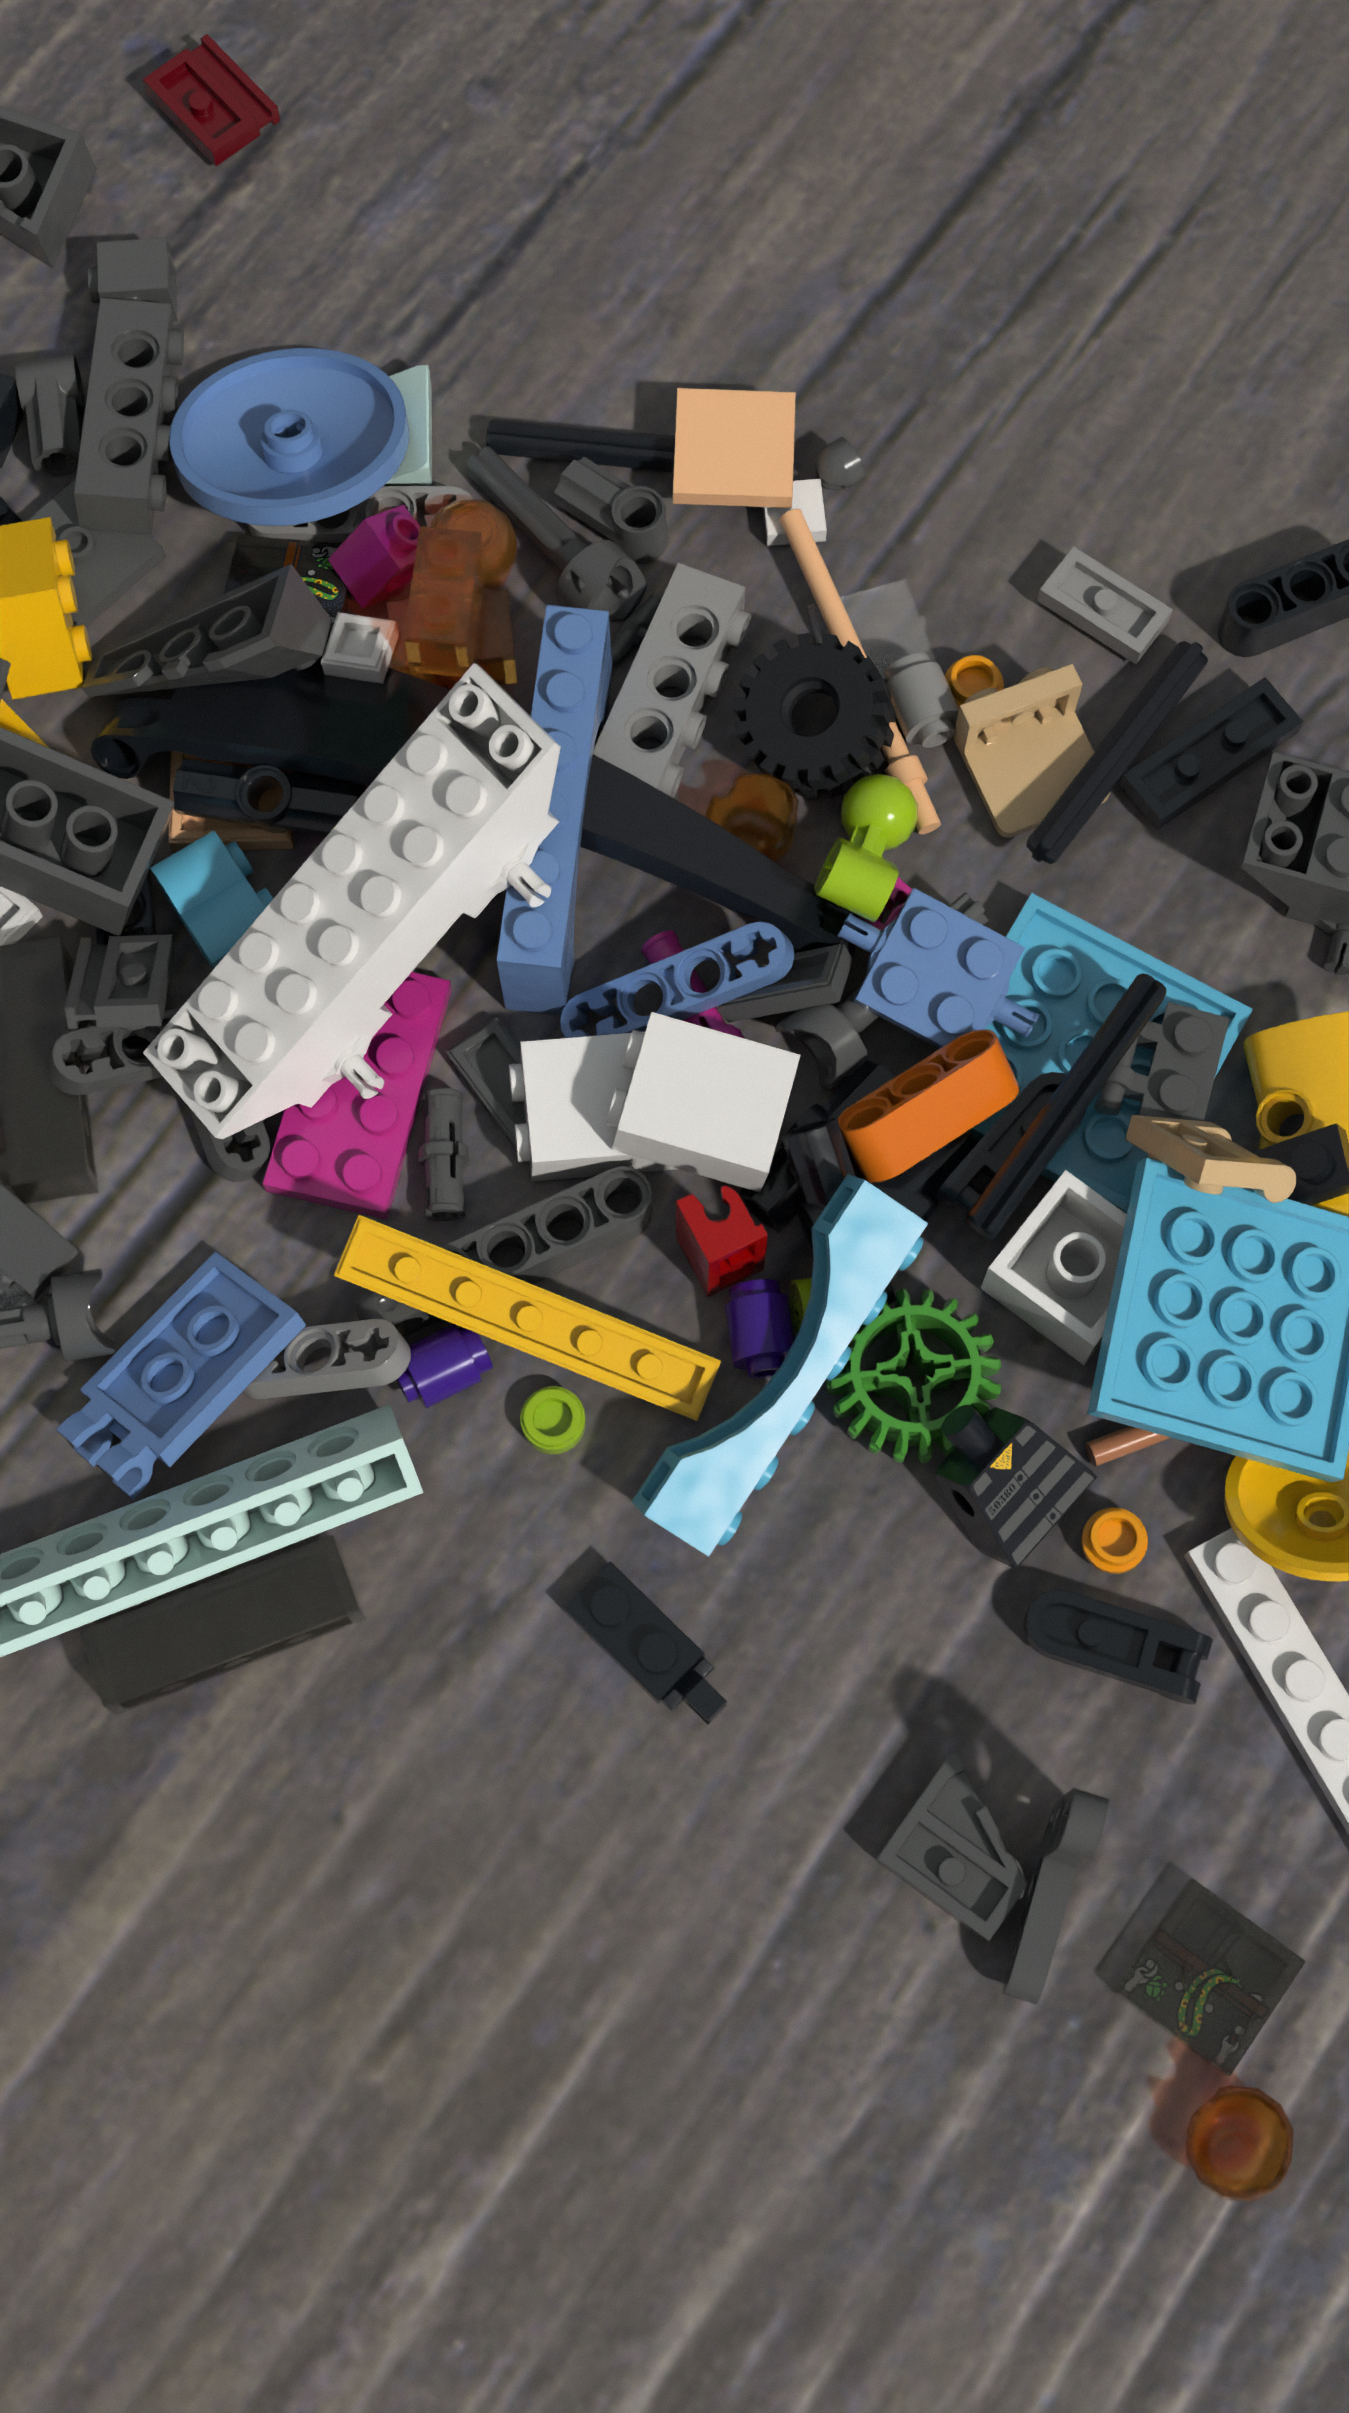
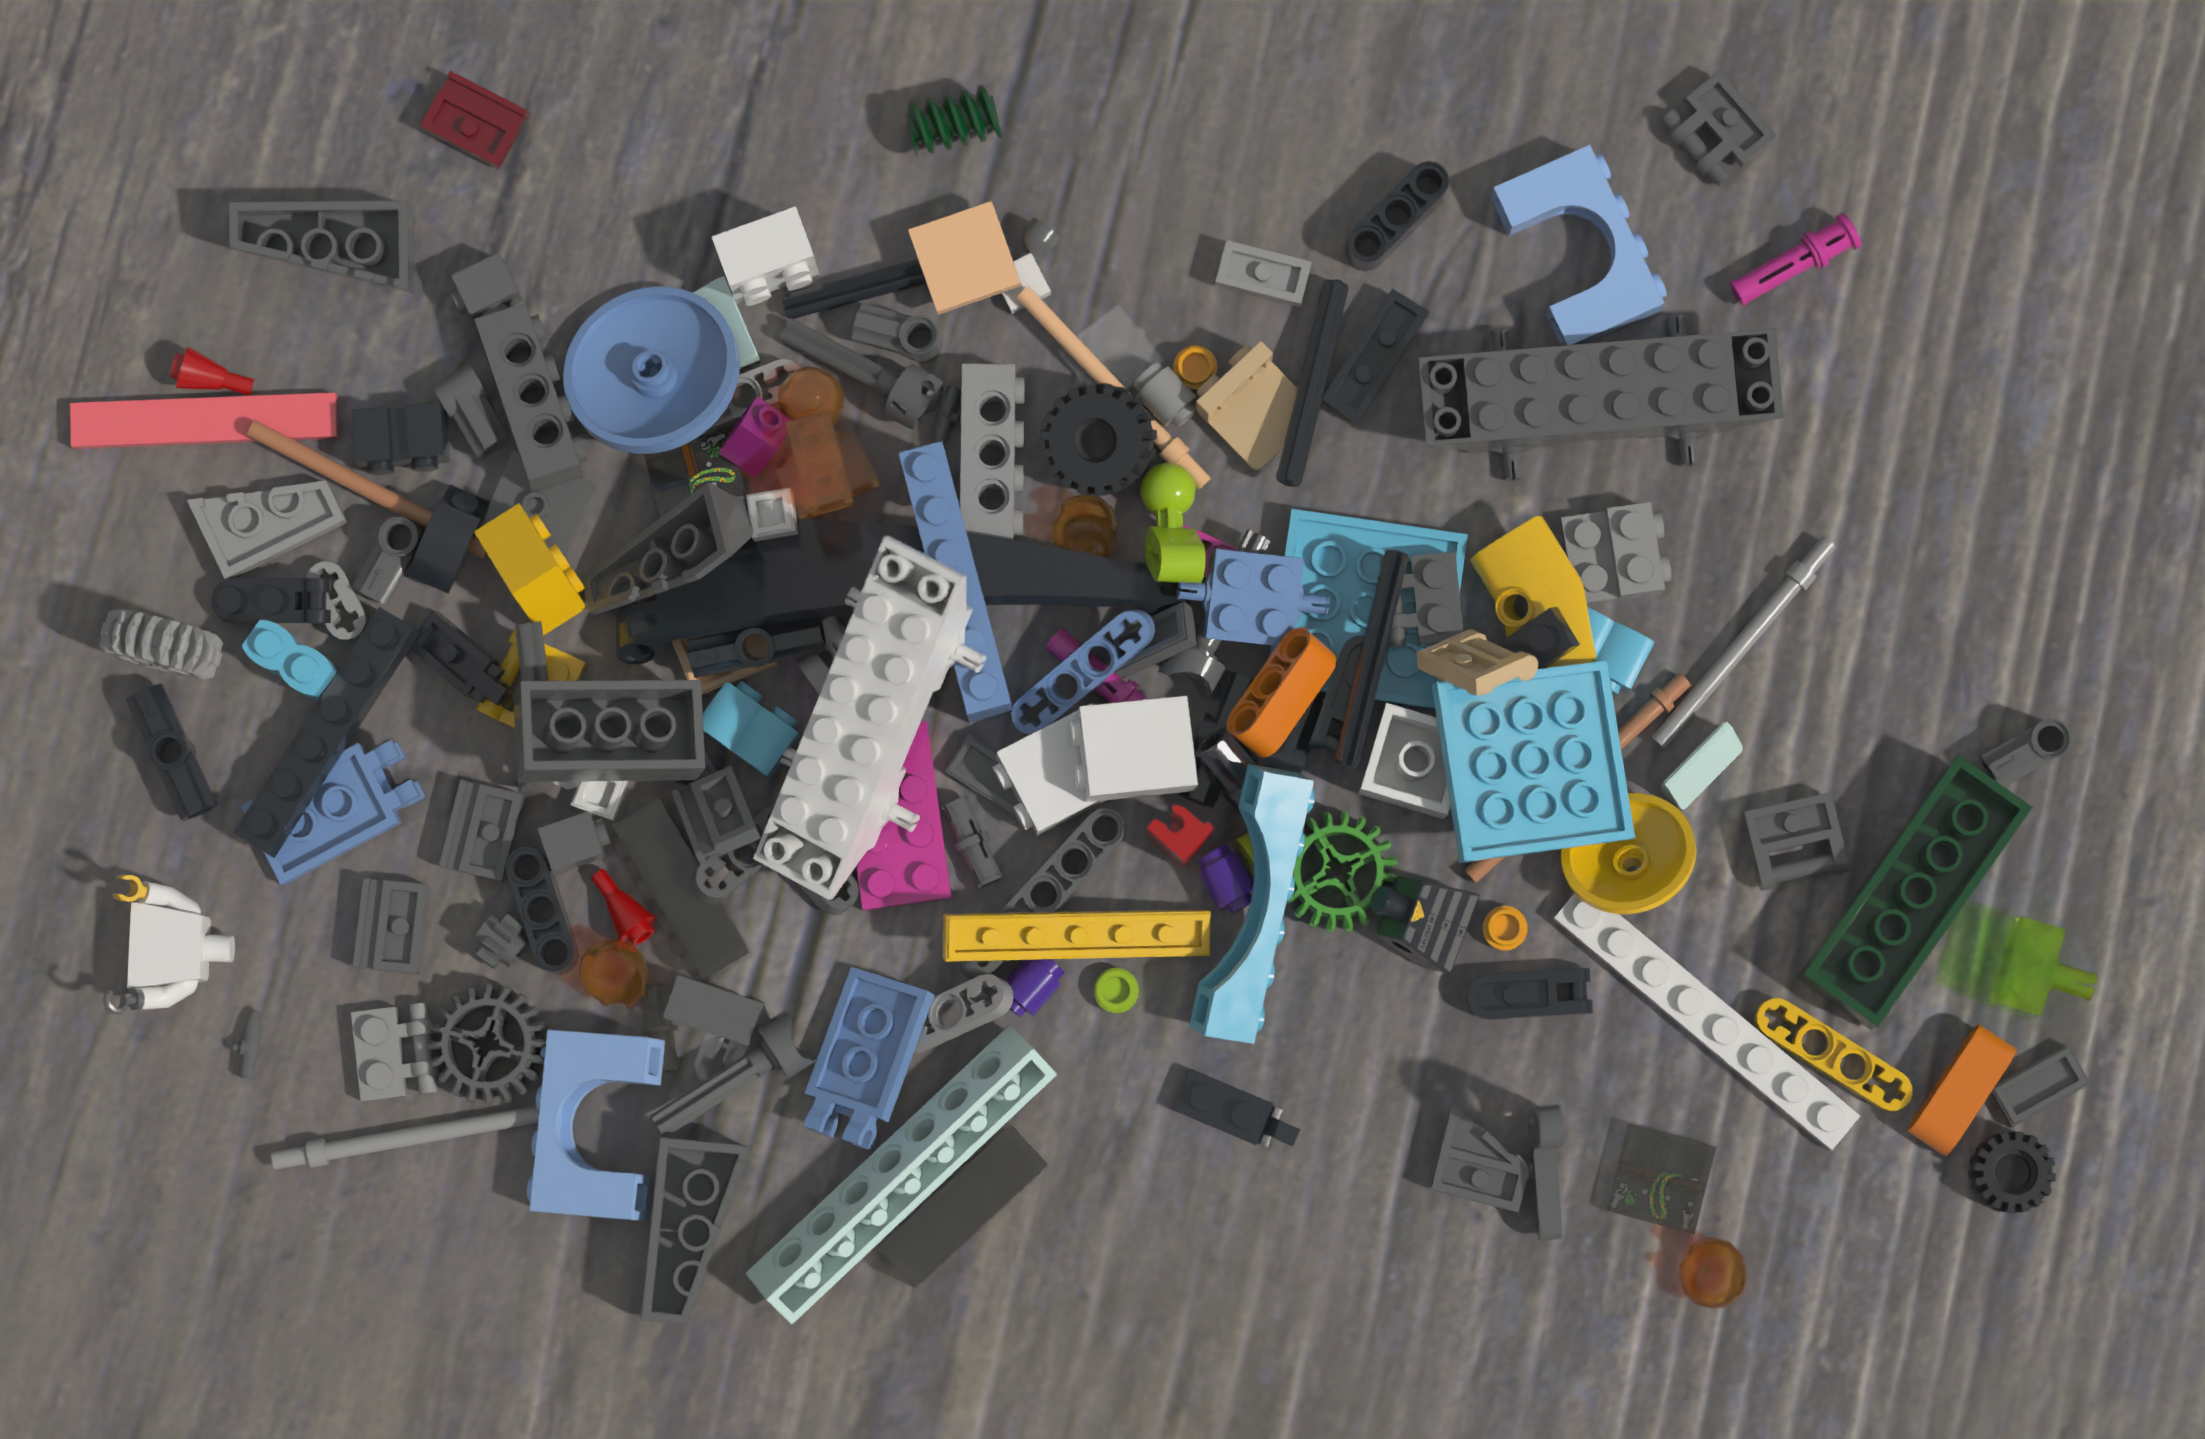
camera: 20 degrees left, 10 degrees up
(487, 353) = (766, 257): none -> white brick
(786, 293) = (952, 119): none -> dark green piece

